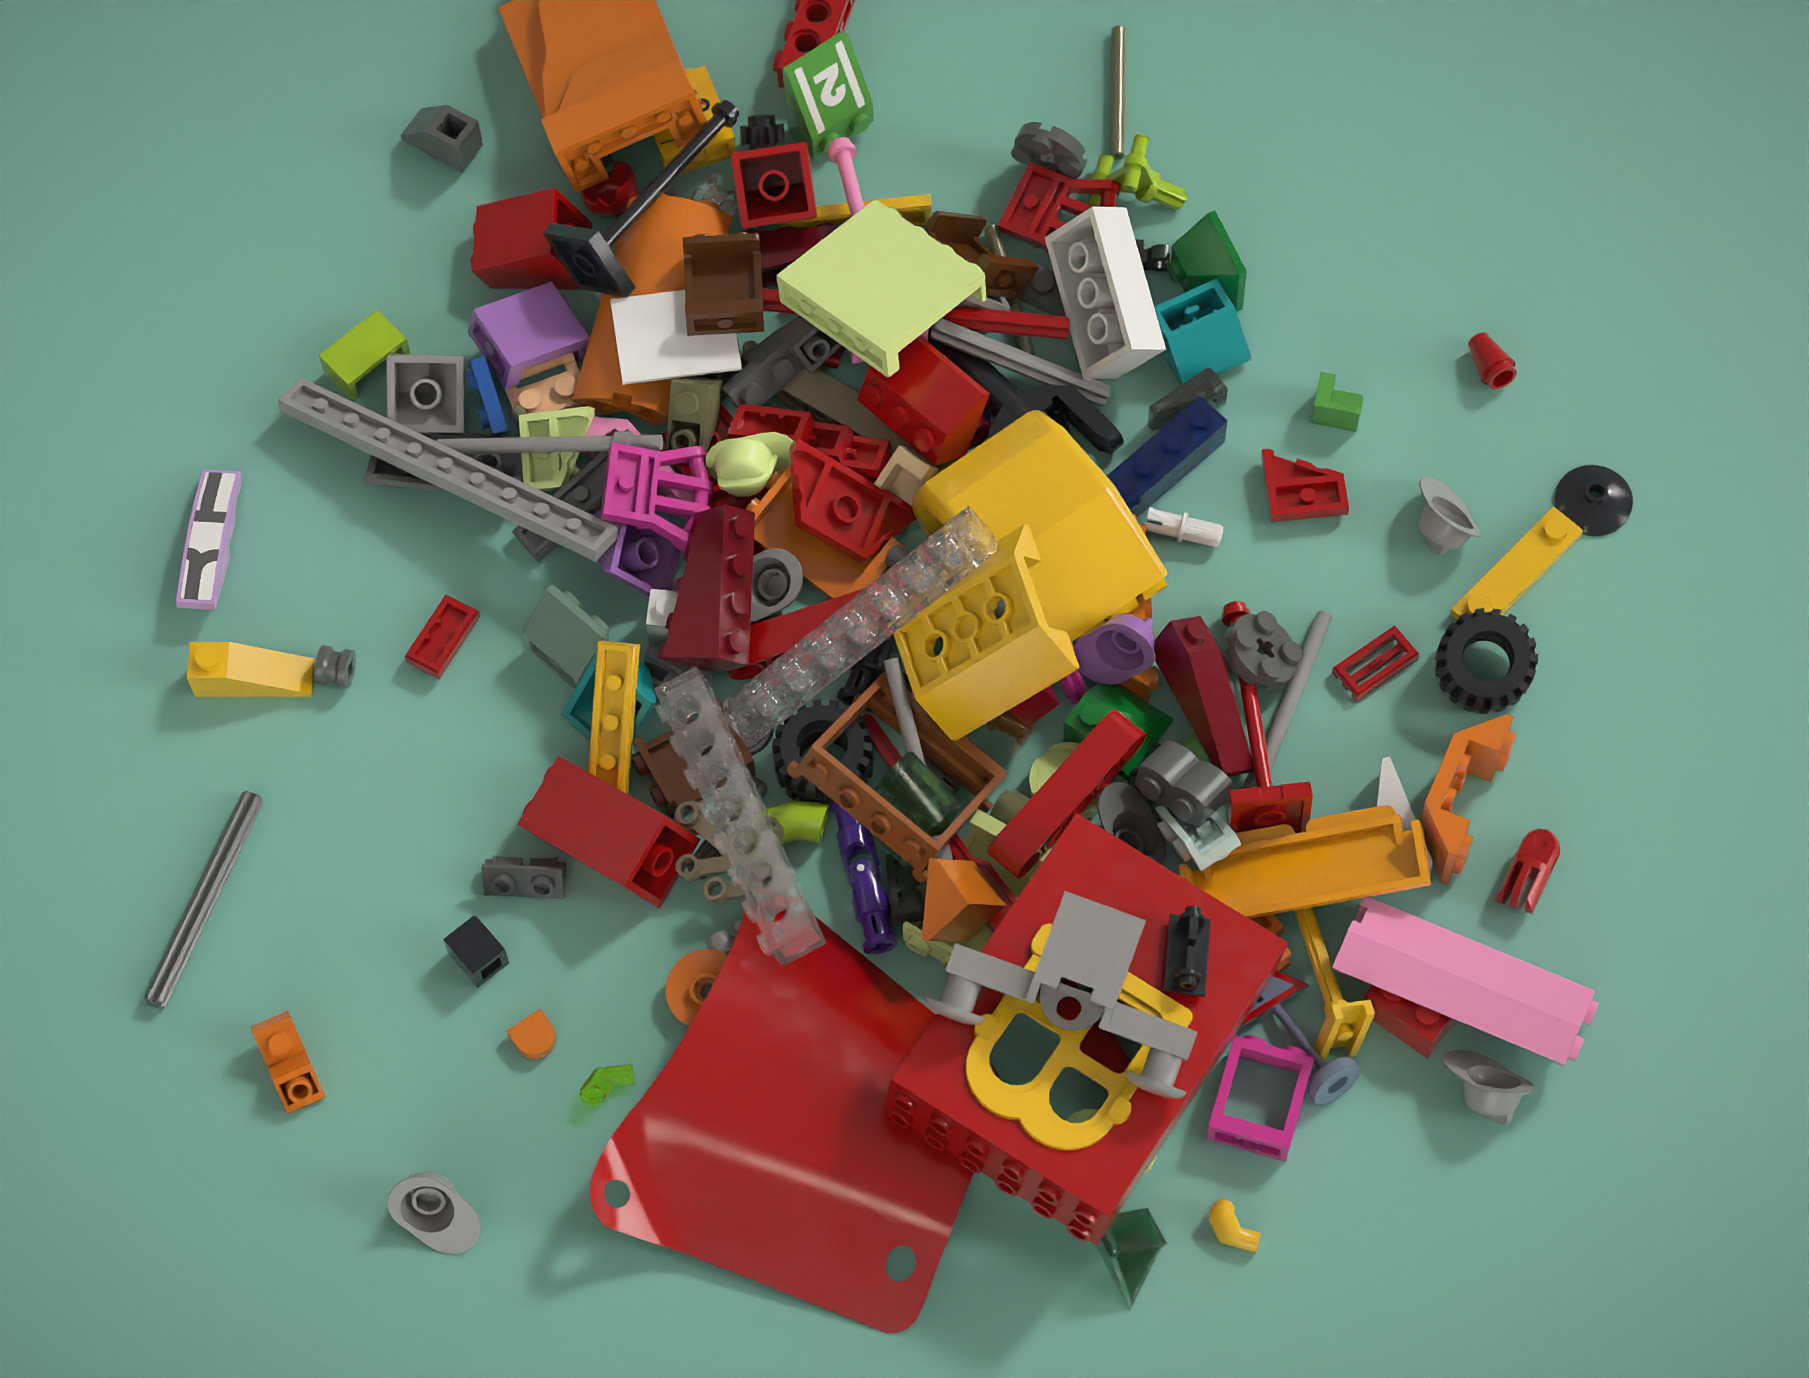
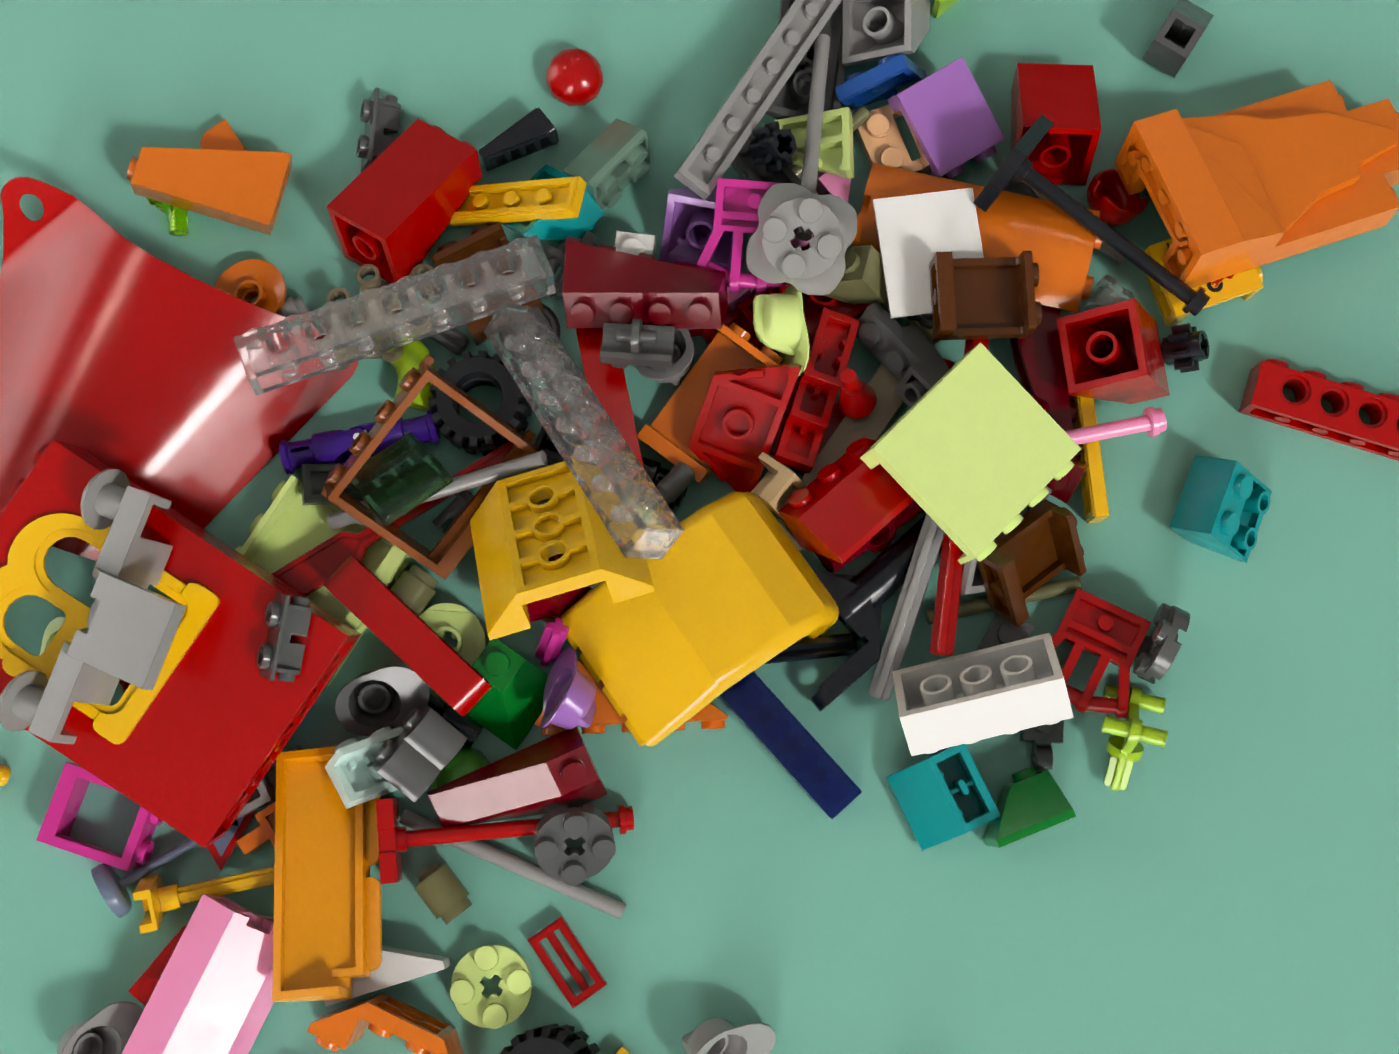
camera: 90 degrees right, 15 degrees up
(434, 1212) = (60, 58): light grey piece -> none
(442, 636) = (626, 52): red plate -> none
(466, 687) = (574, 77): none -> red hair
(476, 951) = (297, 86): black panel -> none
(532, 724) = (523, 138): none -> black slope
(563, 477) = (772, 147): none -> black gear
(587, 1018) = (217, 183): none -> orange slope
(645, 446) = (833, 230): none -> light grey brick
(771, 589) = (637, 345): none -> dark grey hips
(820, 402) = (855, 397): none -> red cone
(827, 95) = (1223, 408): bright green slope -> none
(916, 107) = (1221, 507): none -> teal slope
(957, 901) = (302, 524): orange slope -> none
(1088, 866) = (278, 652): none -> dark grey hinge
(1118, 92) = (1249, 722): olive piece -> none
(1184, 527) = (723, 769): white axle -> none
(1187, 953) = (180, 741): black hinge -> none
(1204, 384) = (876, 793): clear smoke slope -> none
(1302, 490) = (765, 895): red wing -> none
(1321, 767) = (442, 892): none -> olive brick
(1336, 407) = (864, 940): bright green panel -> none
(1401, 707) = (495, 1009): none -> yellowish green plate

